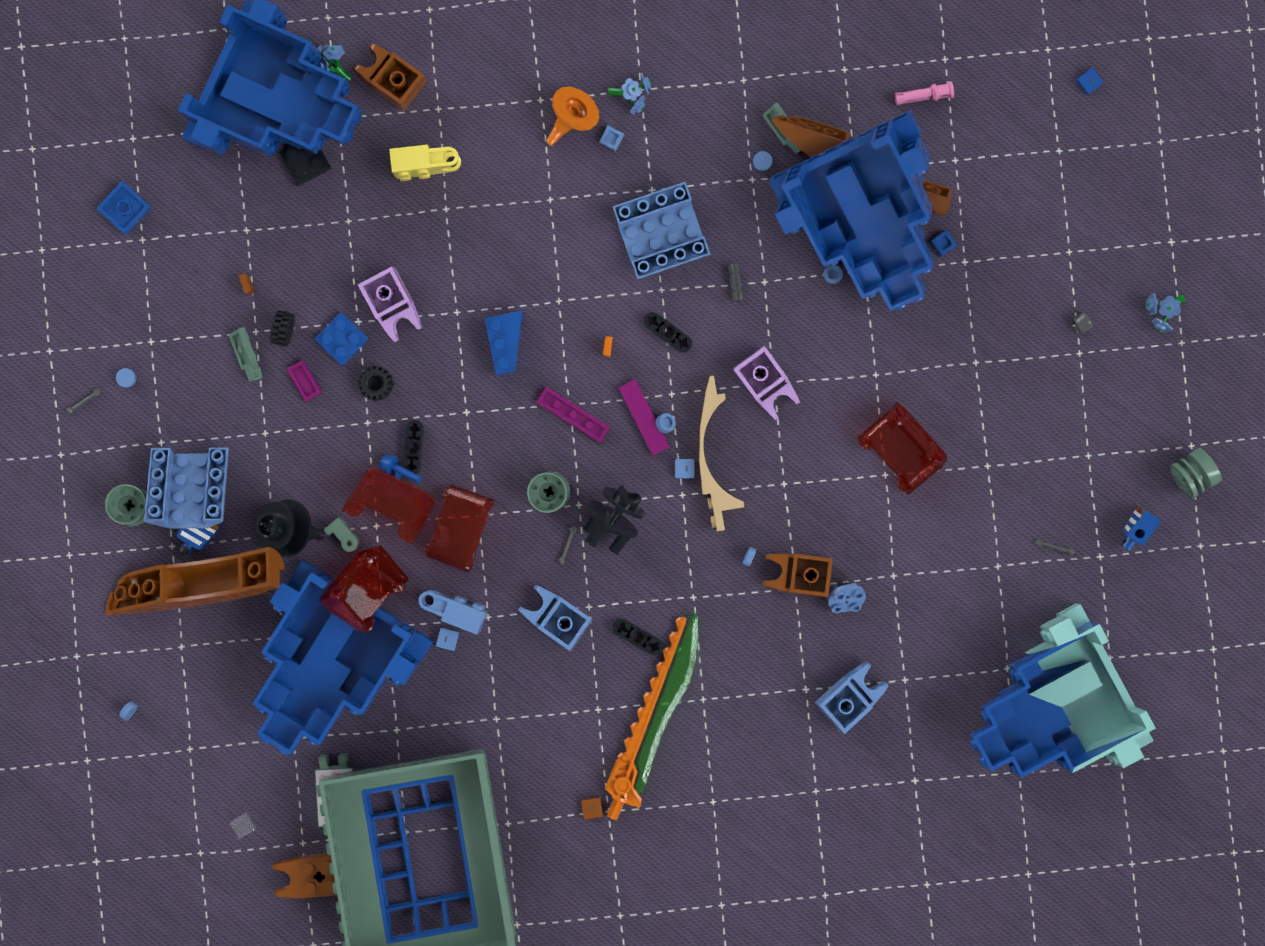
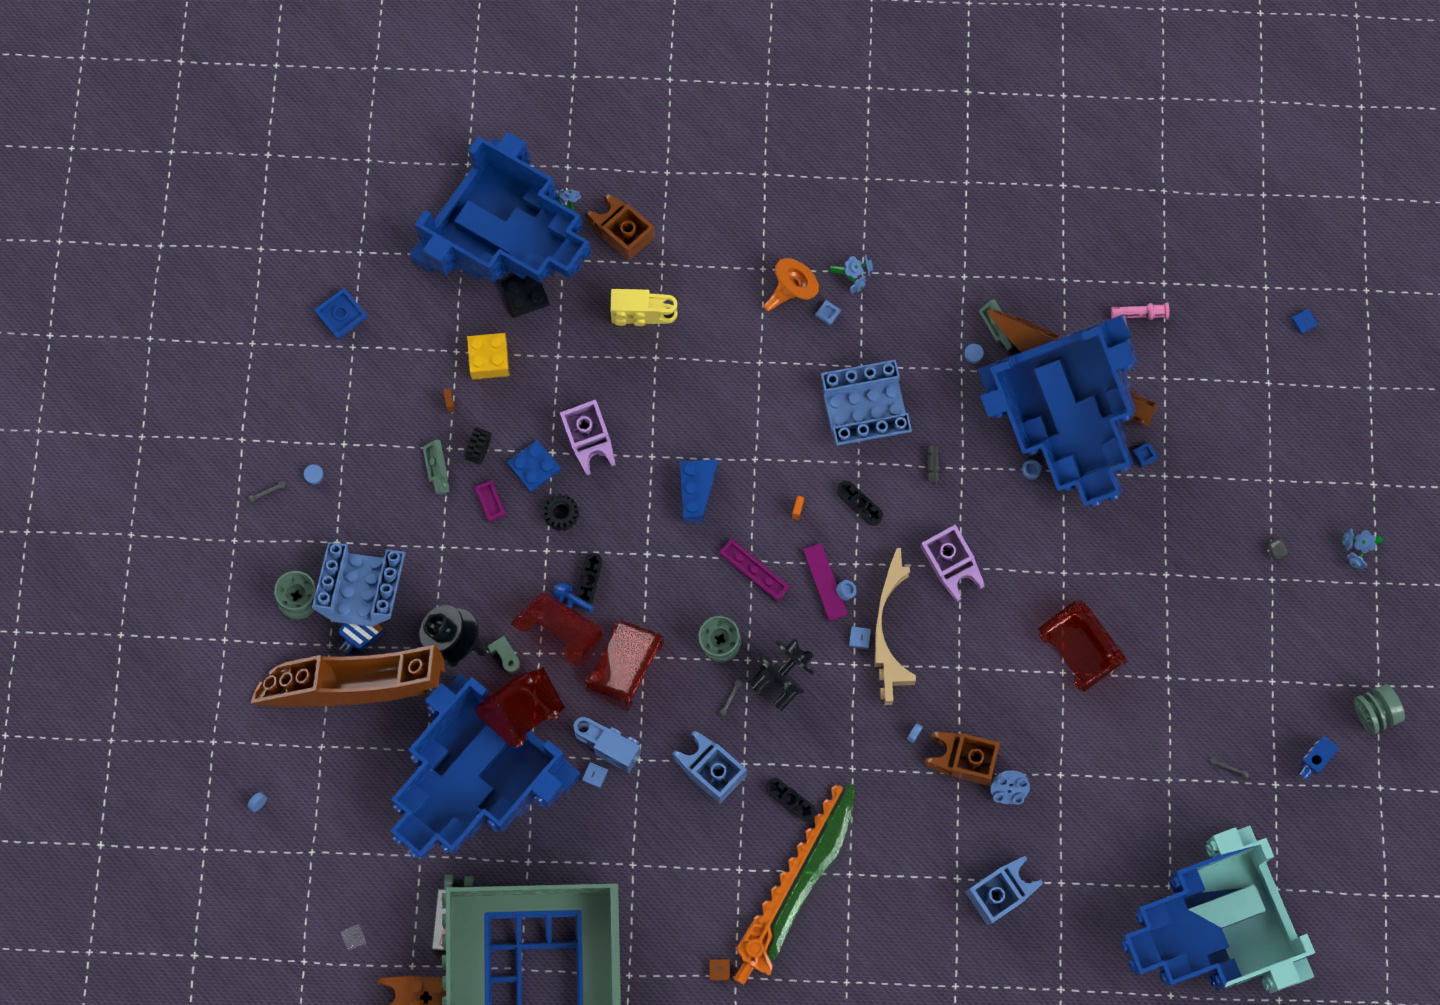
camera: 10 degrees right, 15 degrees down
(278, 232) = (488, 356): none -> yellow brick

